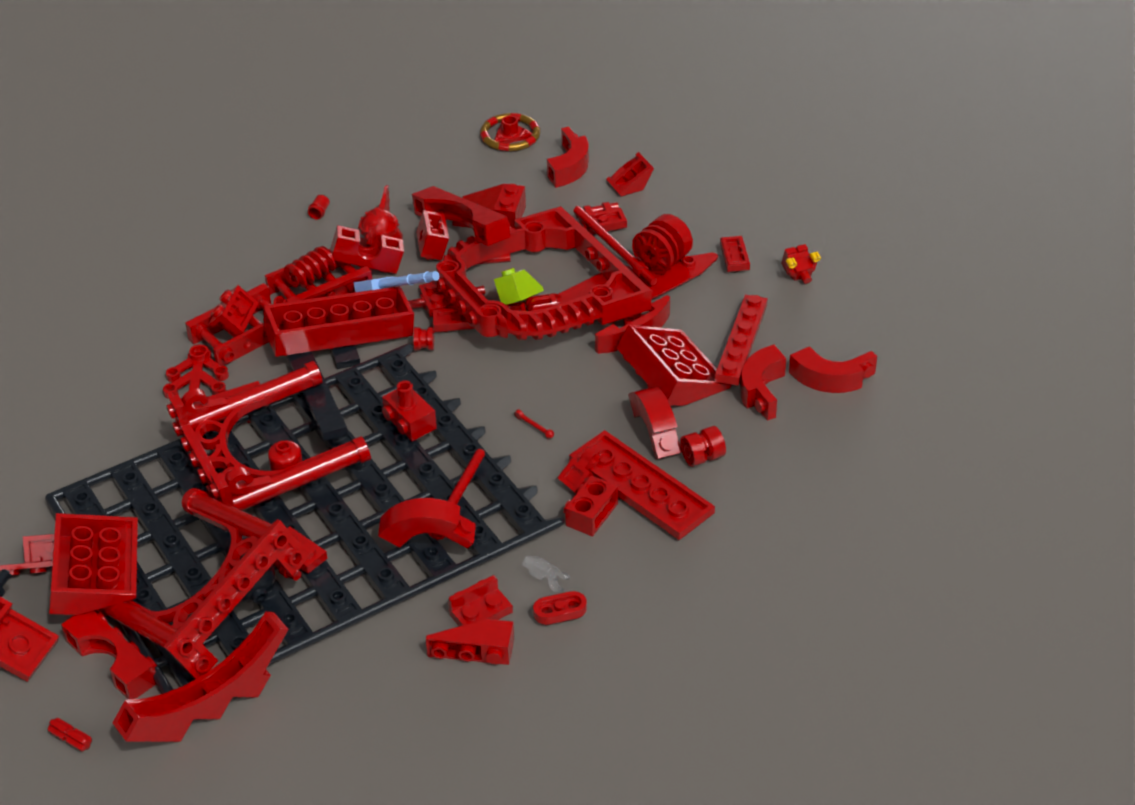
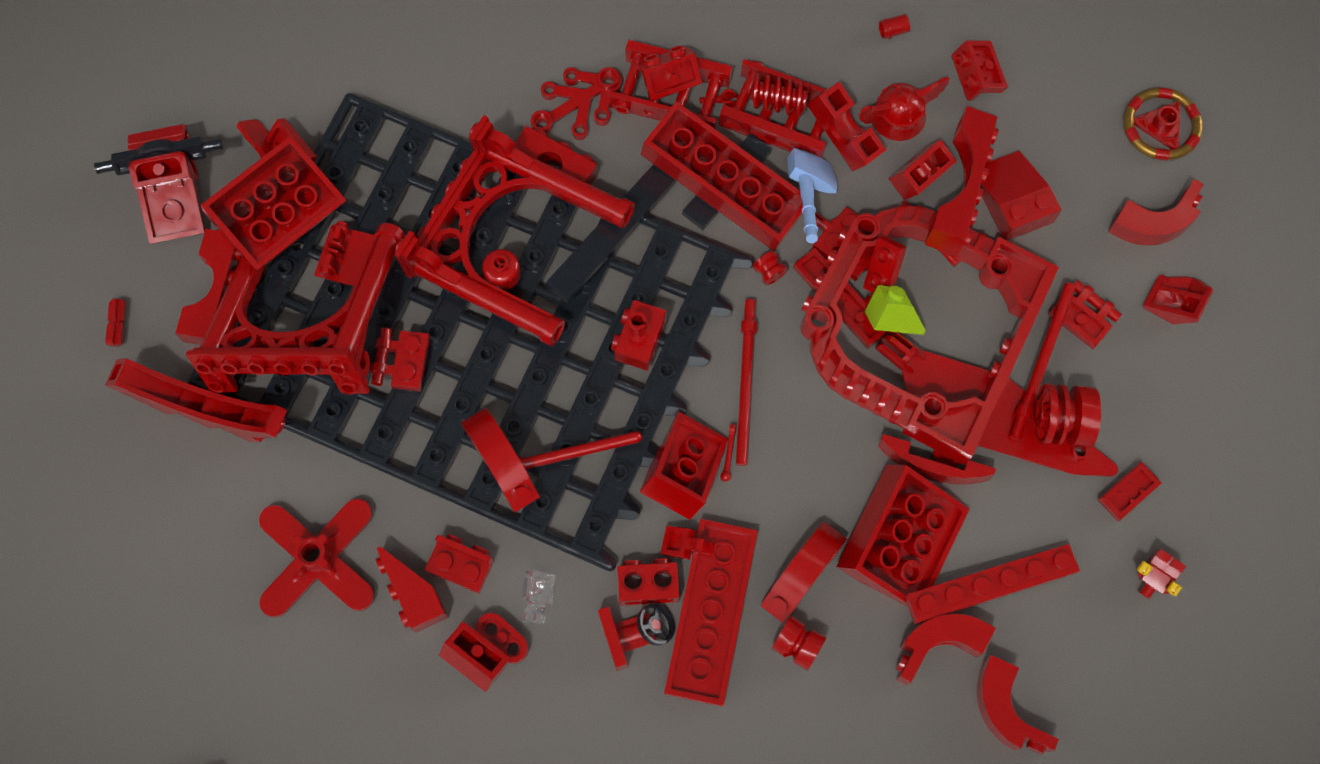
camera: 55 degrees right, 30 degrees up
(178, 545) = (343, 254): none -> red hinge
(395, 691) = (326, 568): none -> red piece
(397, 184) = (978, 69): none -> red bracket
(456, 372) = (748, 329): none -> red bar
(482, 274) = (884, 265): none -> red plate
(526, 445) = (684, 466): none -> red slope
(561, 623) = (474, 656): none -> red brick
(620, 538) = (635, 632): none -> red piece

